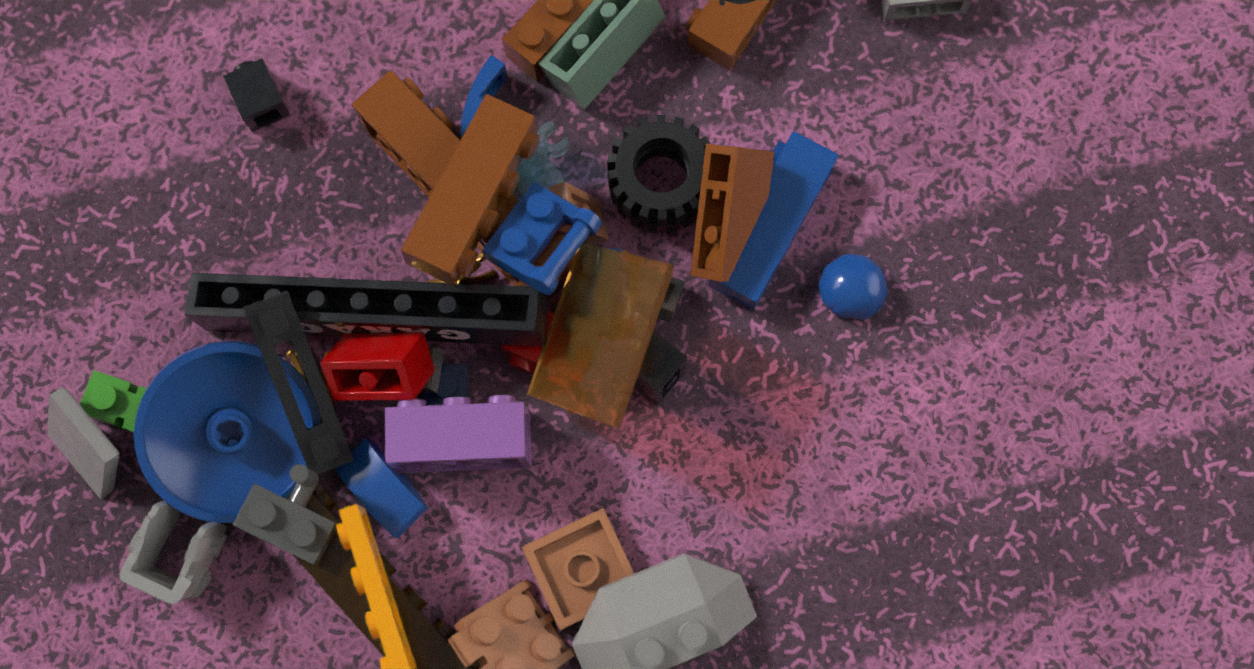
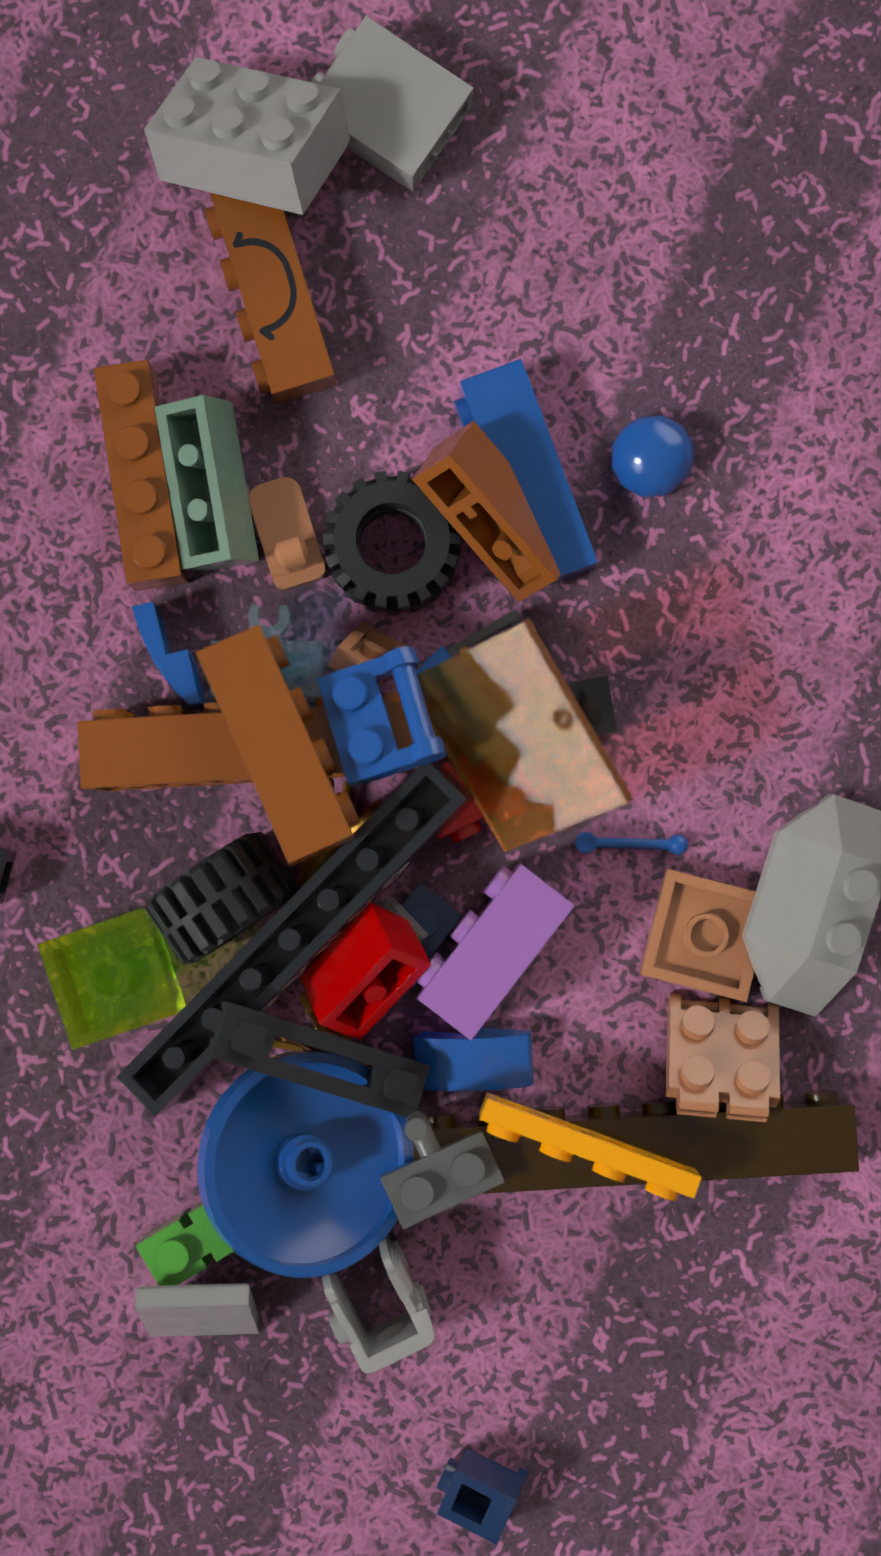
camera: 50 degrees left, 10 degrees up
(254, 223) = (111, 978): none -> clear neon green brick
(351, 242) = (221, 897): none -> black tyre
(614, 110) = (286, 533): none -> nougat piece
(624, 503) = (587, 842): none -> blue hinge

